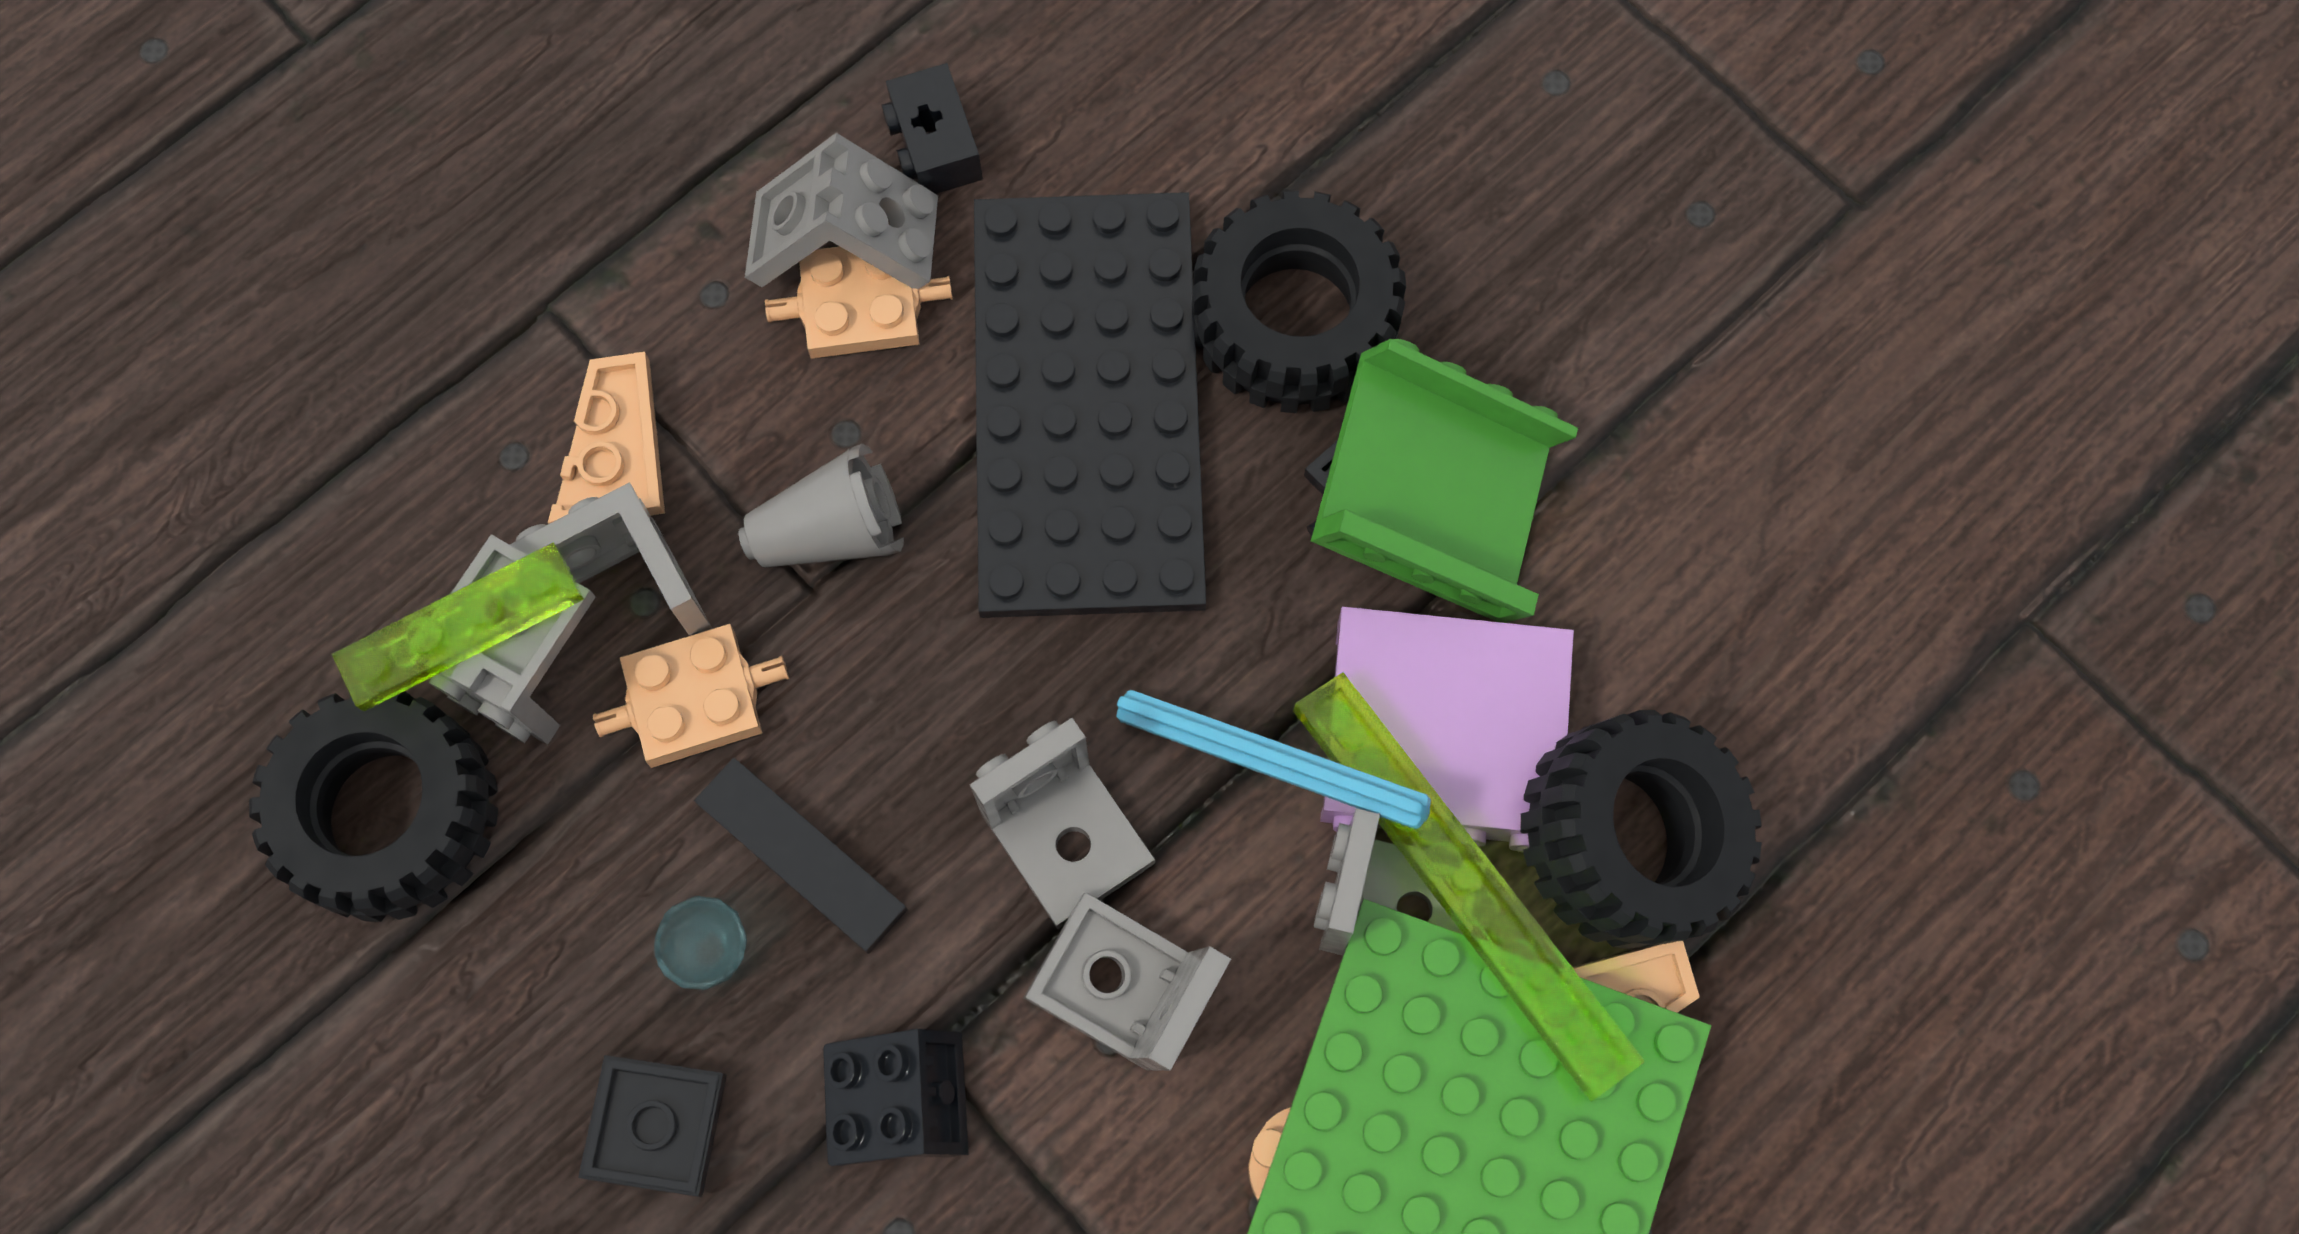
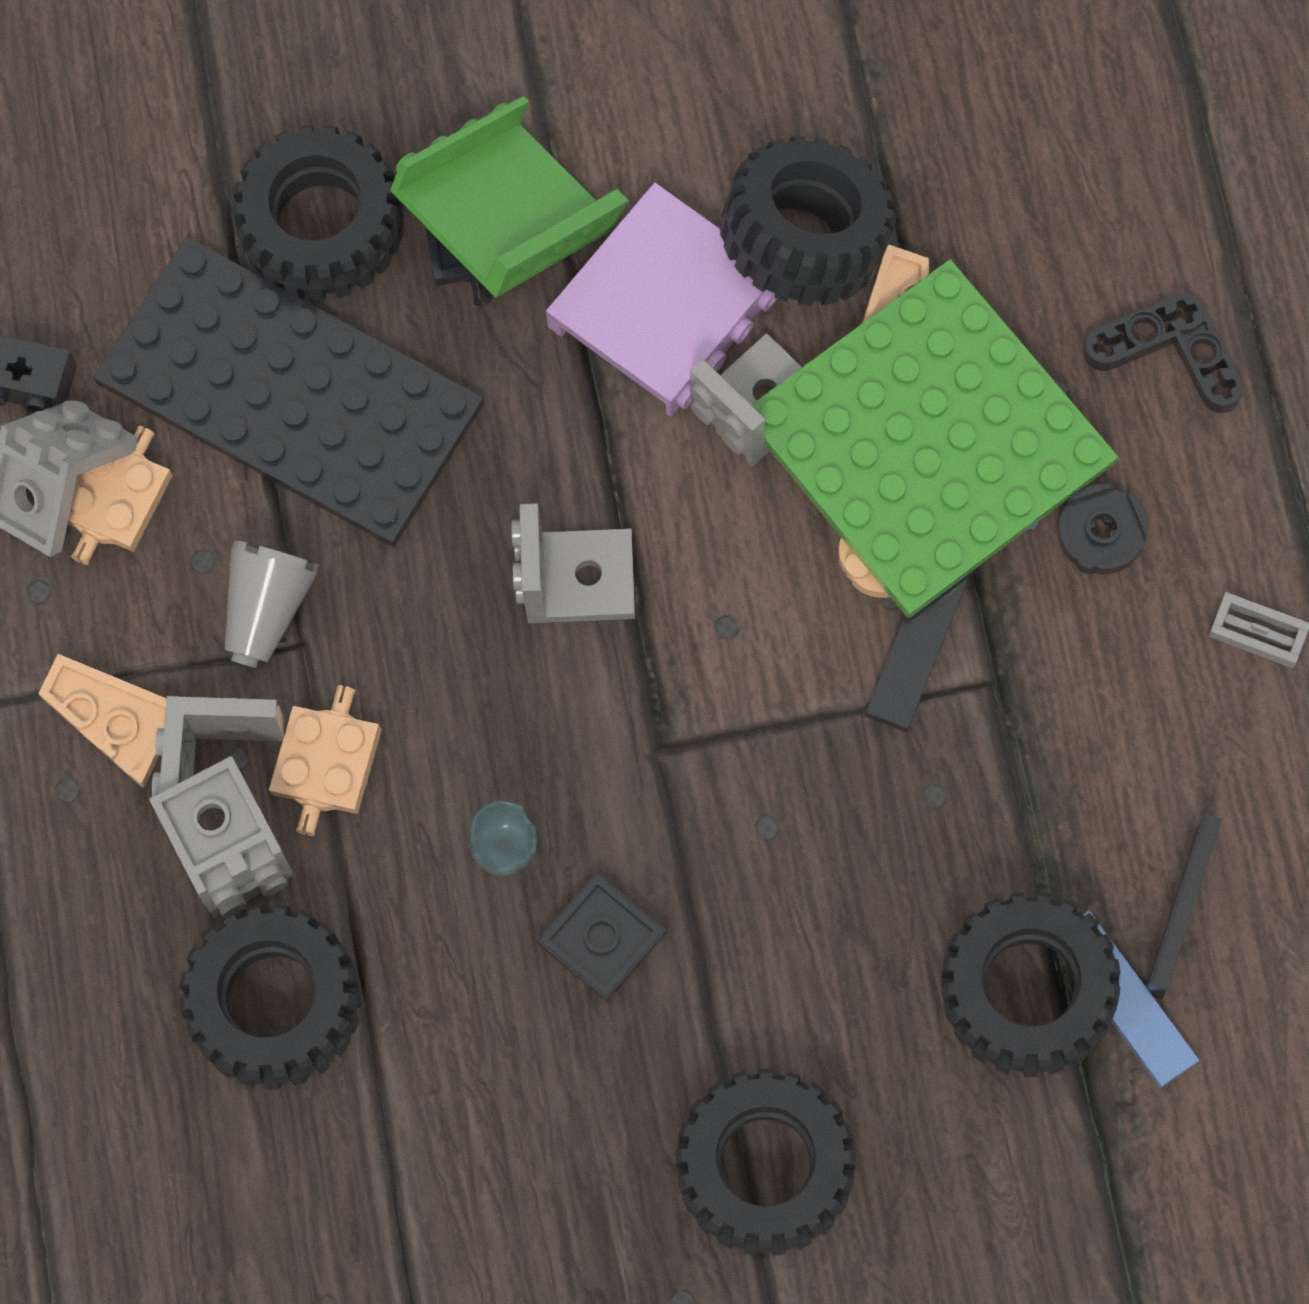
camera: 55 degrees left, 0 degrees up
(457, 627) = (203, 850): clear neon green plate -> none
(801, 855) = (481, 749): black tile -> none
(895, 1097) = (678, 777): black bracket -> none
(1158, 991) = (725, 573): light grey bracket -> none
(1275, 759) = (617, 410): medium azure axle -> none
(1477, 896) = (773, 341): clear neon green plate -> none

